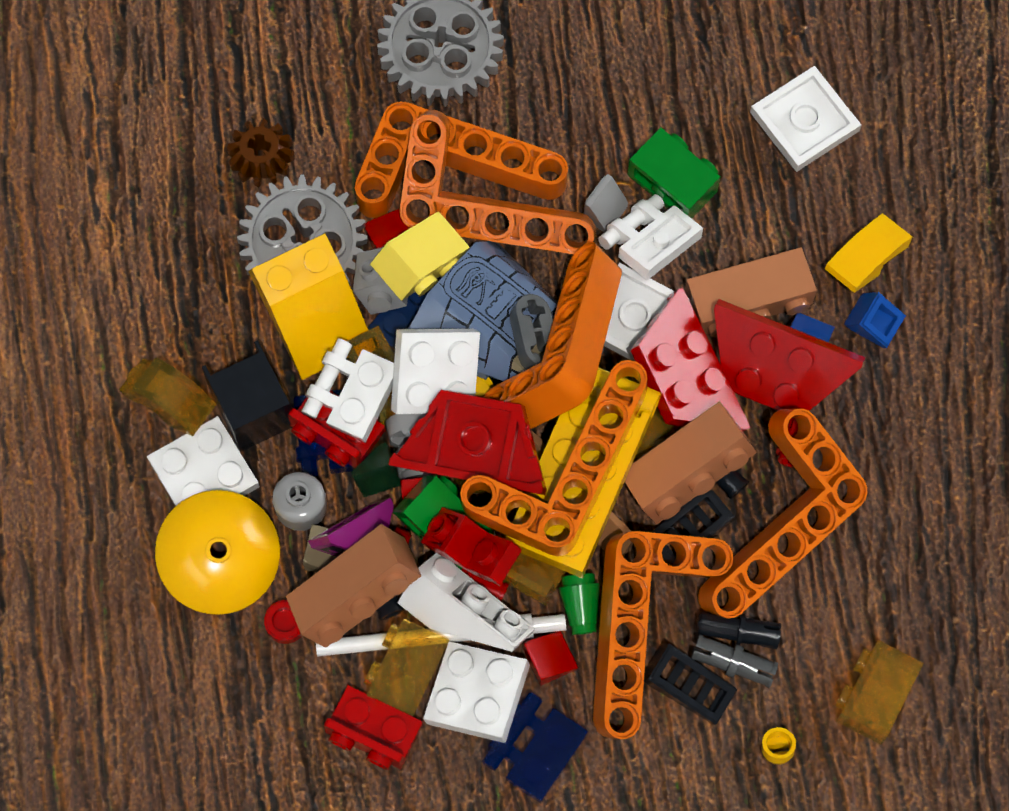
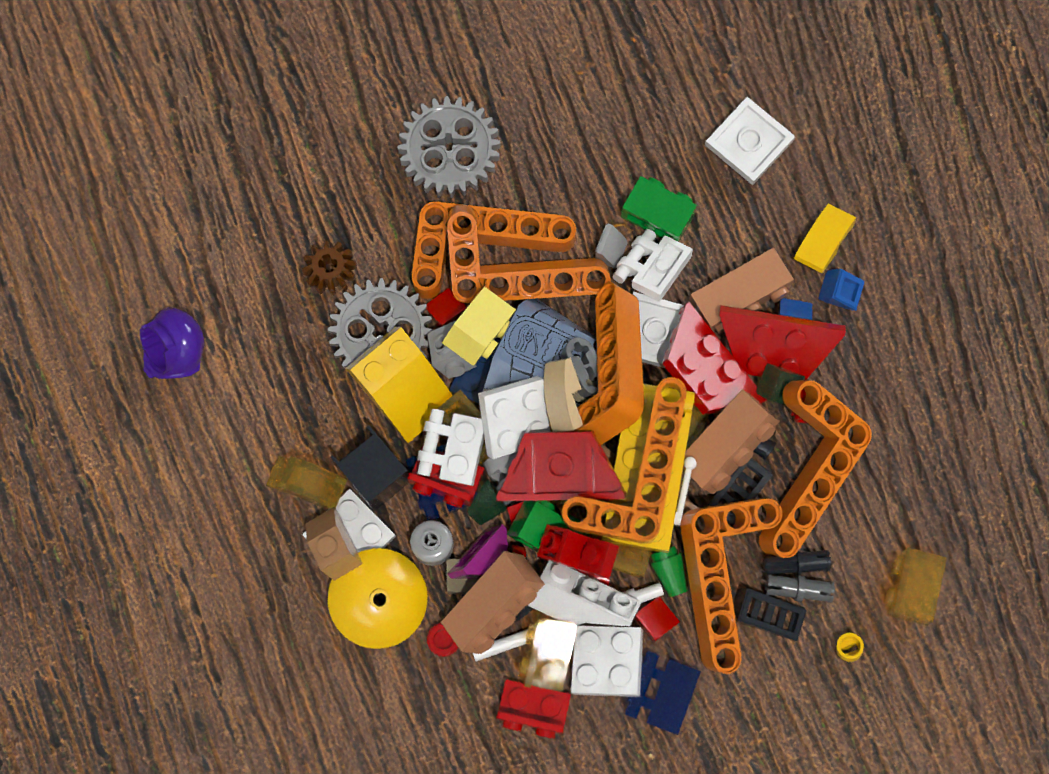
camera: 10 degrees left, 5 degrees up
(49, 198) = (172, 345): none -> dark purple helmet
(177, 474) = (331, 545): none -> medium nougat slope
(497, 341) = (559, 385): none -> tan slope
(634, 477) = (689, 463): none -> white hinge
(762, 405) = (774, 381): none -> slope

